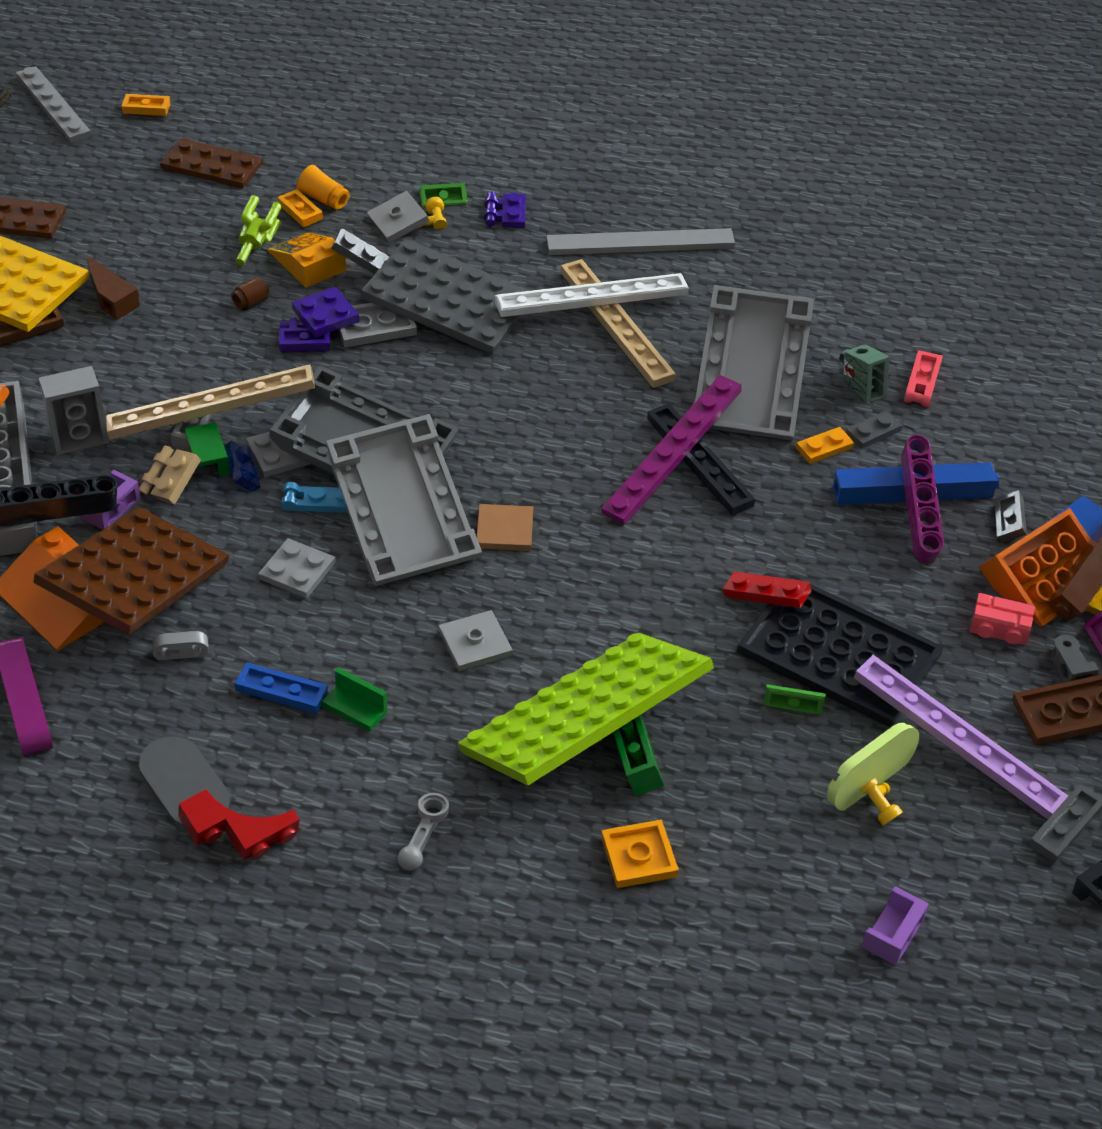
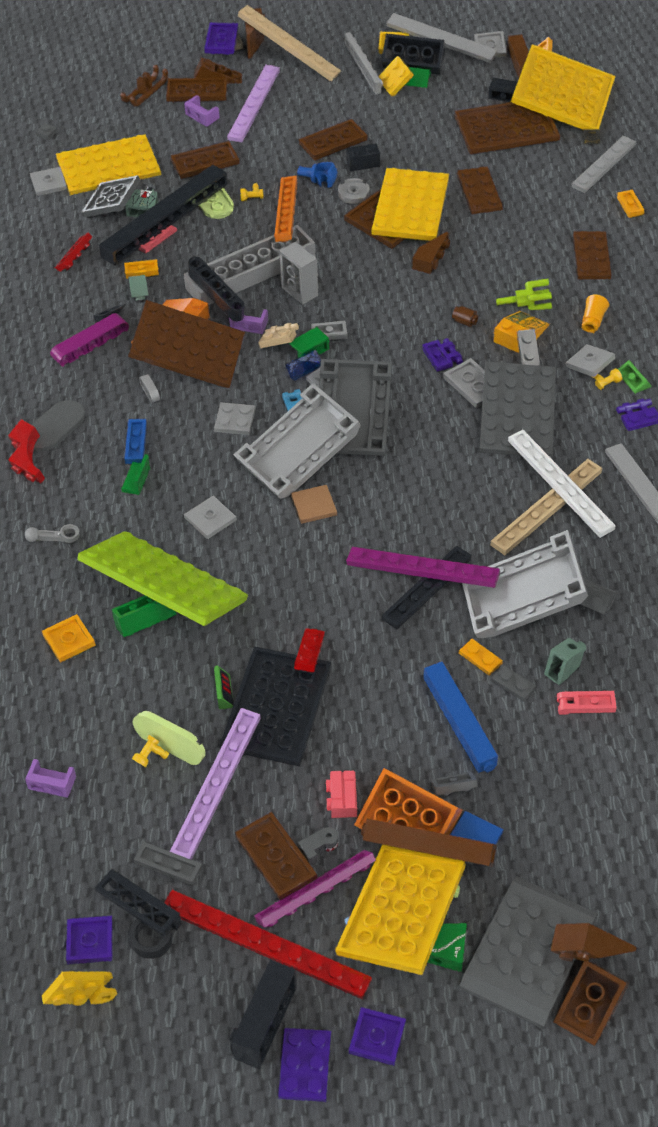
camera: 75 degrees right, 5 degrees up
(210, 401) = (338, 328): tan plate -> none
(300, 208) = (569, 310): light orange plate -> none
(325, 312) = (462, 354): dark purple plate -> none
(918, 509) = (438, 709): magenta beam -> none

